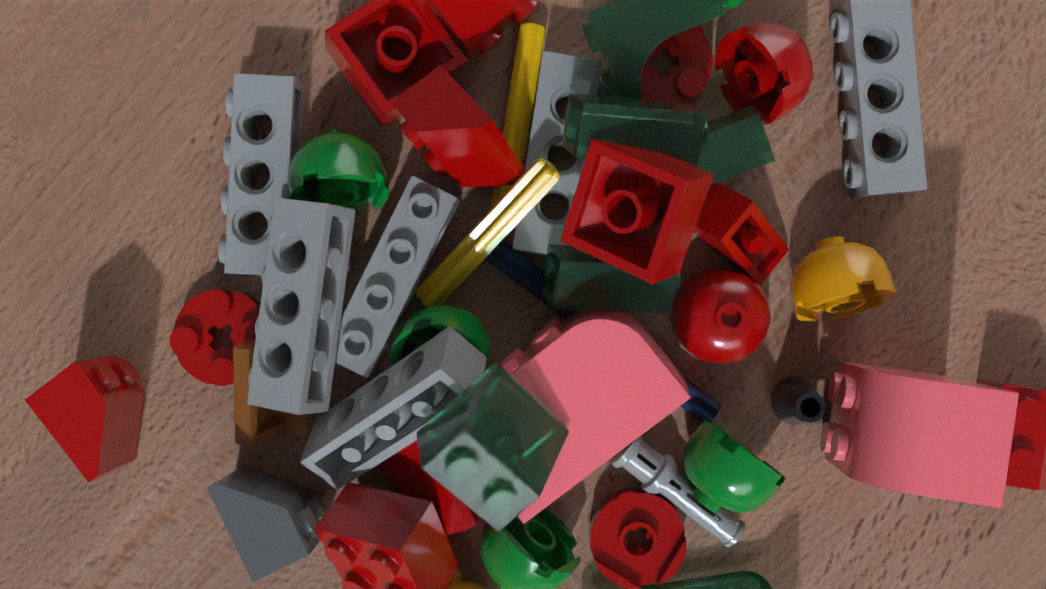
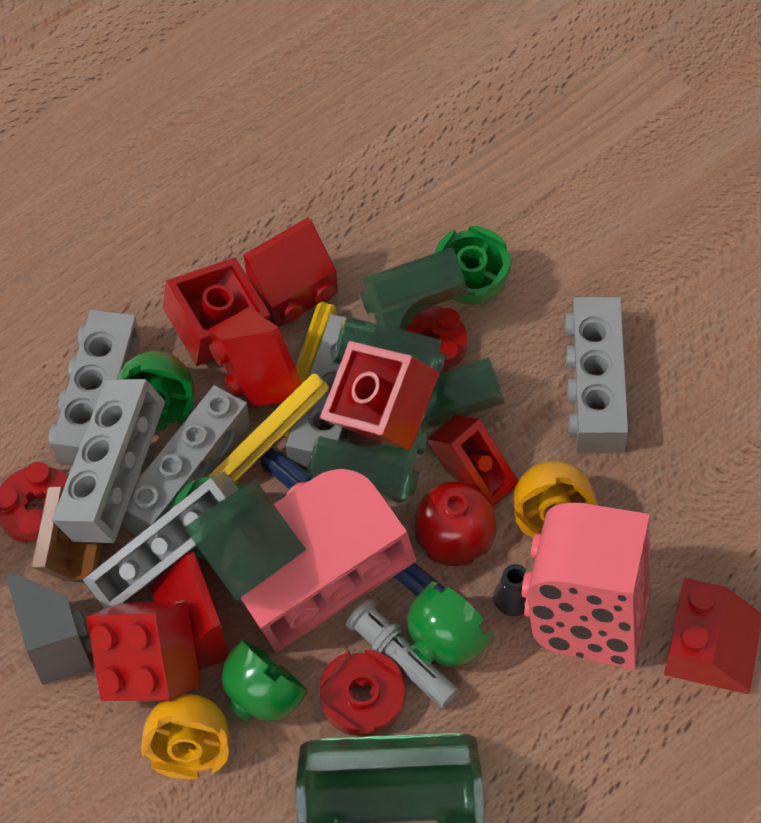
camera: 10 degrees right, 30 degrees down
(765, 68) = (508, 340): red cylinder -> none

